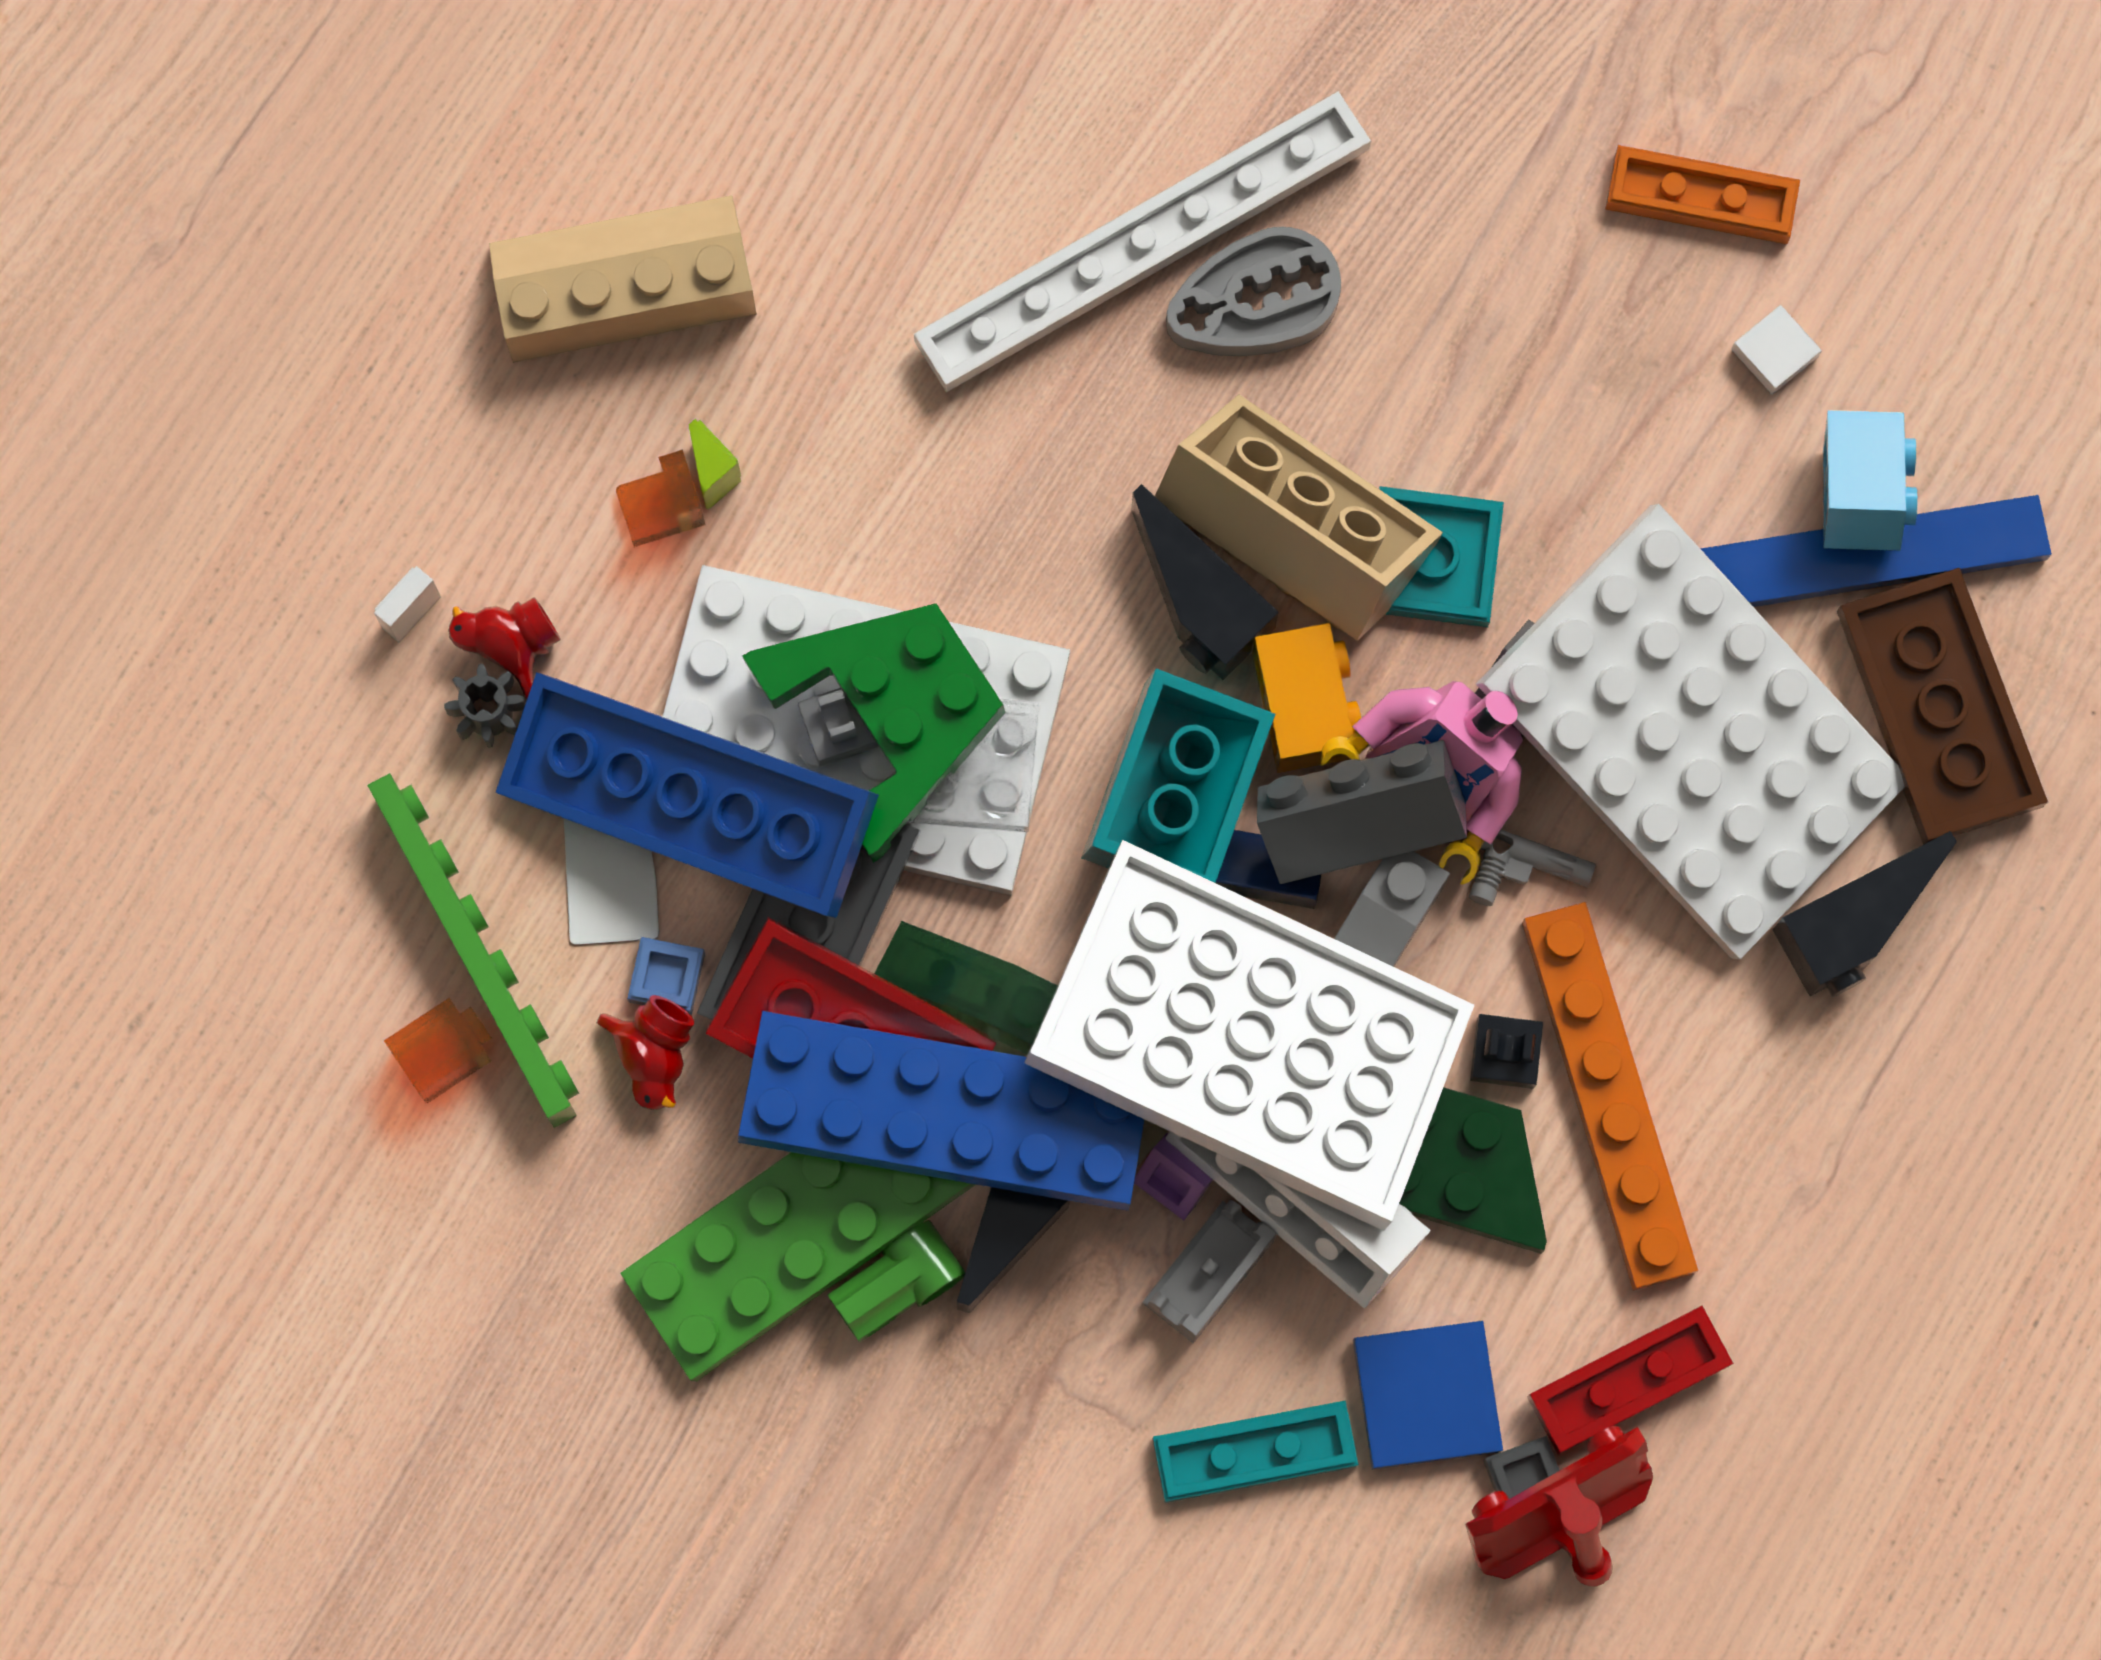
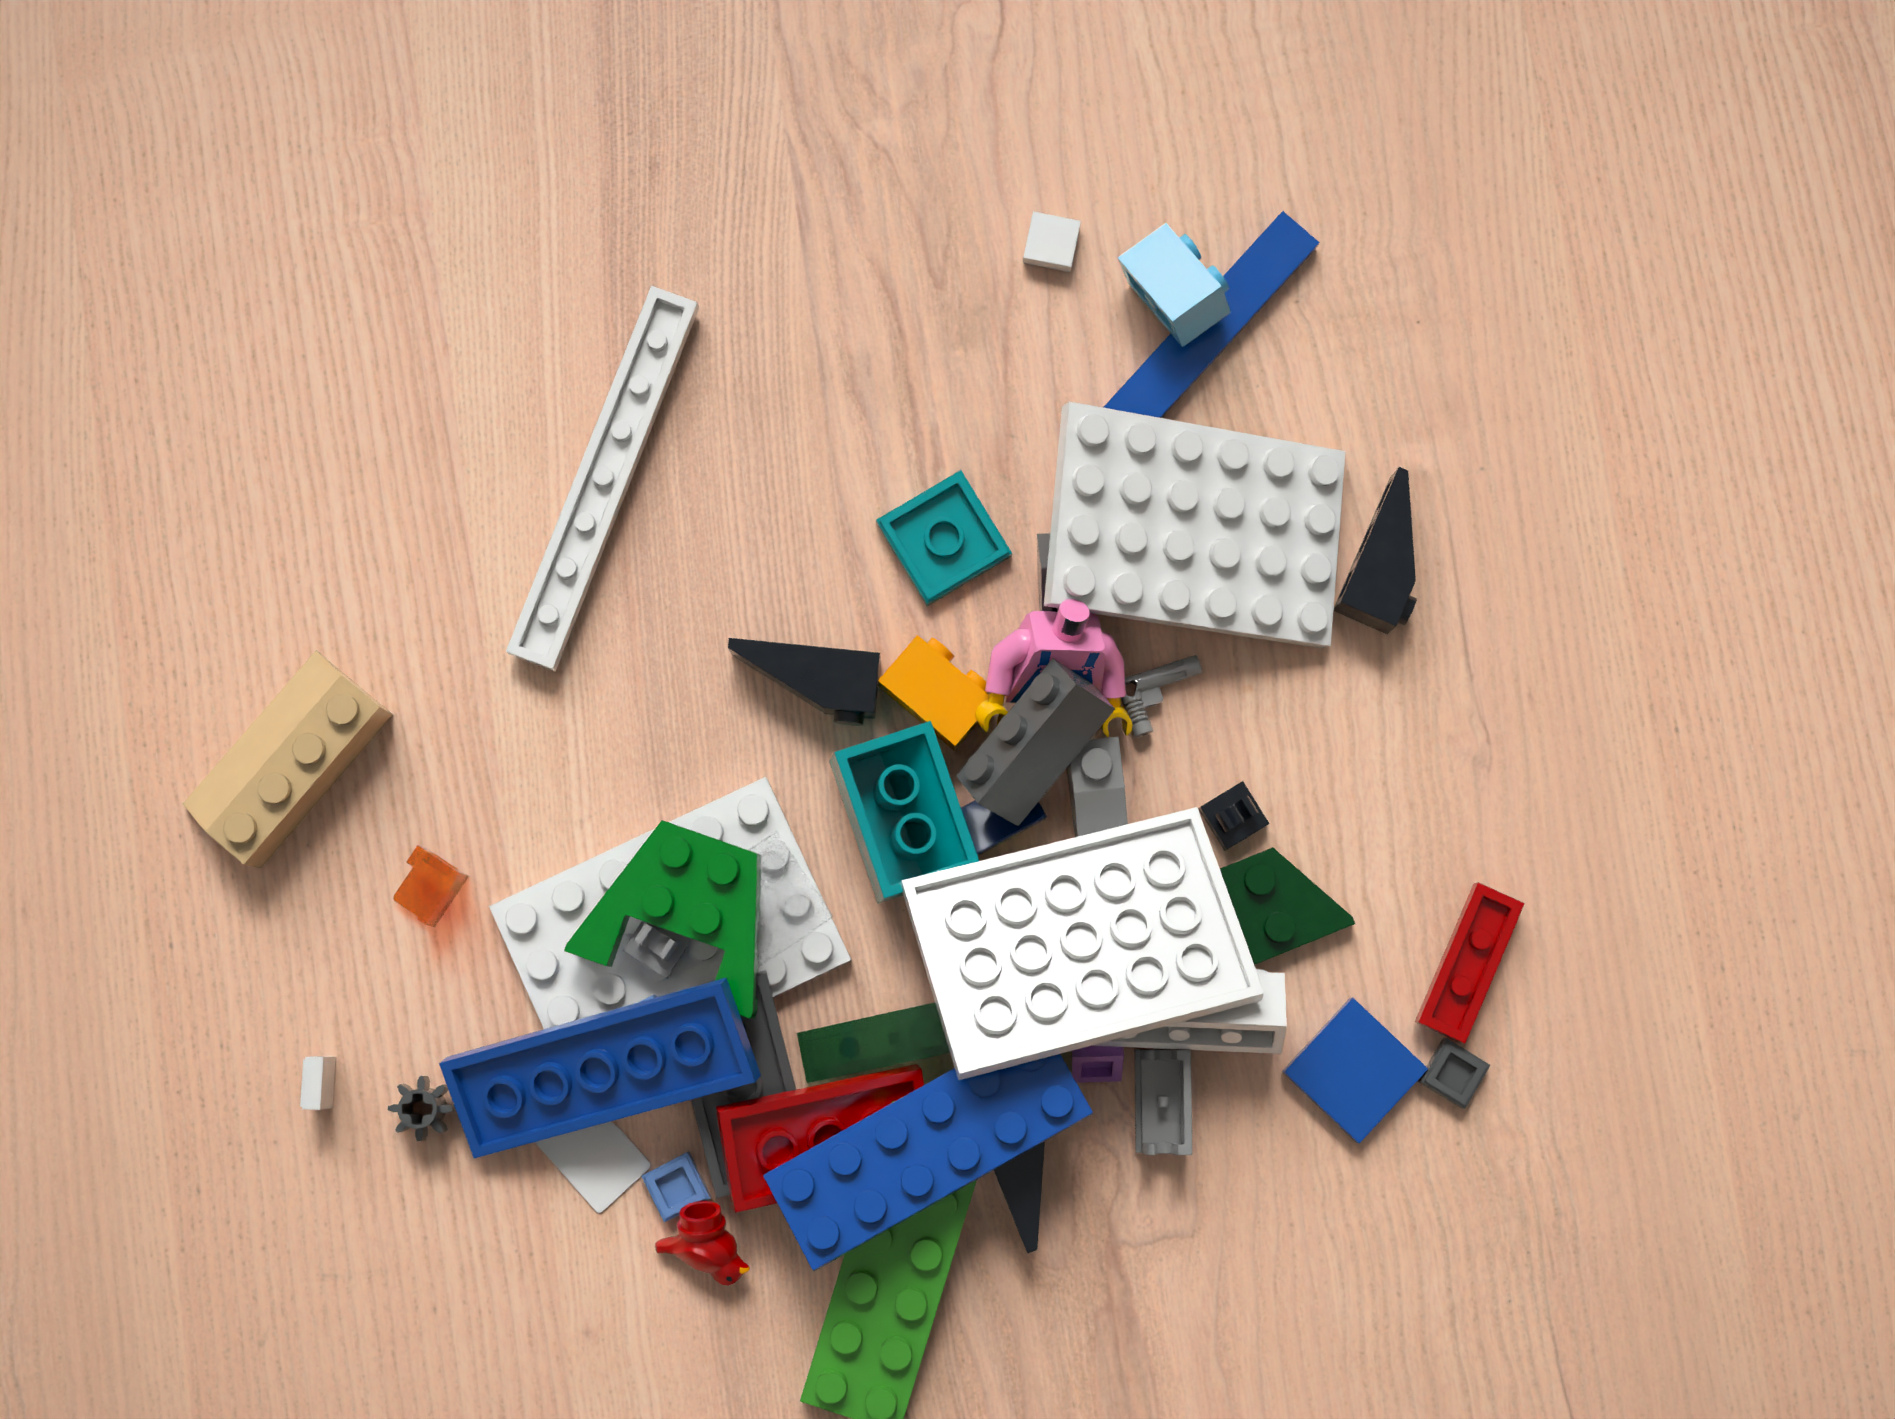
camera: 40 degrees left, 5 degrees up
(440, 1048) = (571, 1352): clear orange brick -> none
(489, 972) = (521, 1261): bright green plate -> none
(506, 636) = (400, 1052): red animal -> none
(715, 464) = (445, 837): lime slope -> none
(910, 1273) = (980, 1255): bright green piece -> none
(1252, 262) = (683, 436): light grey piece -> none
(1255, 1451) = (1278, 1190): teal tile -> none
(1296, 516) = (840, 580): tan slope -> none
(1564, 1511) = (1499, 1079): red shield -> none
(1609, 1096) = (1318, 794): orange plate -> none
(1702, 194) = (929, 177): orange tile -> none
(1942, 706) = (1328, 390): reddish brown plate -> none

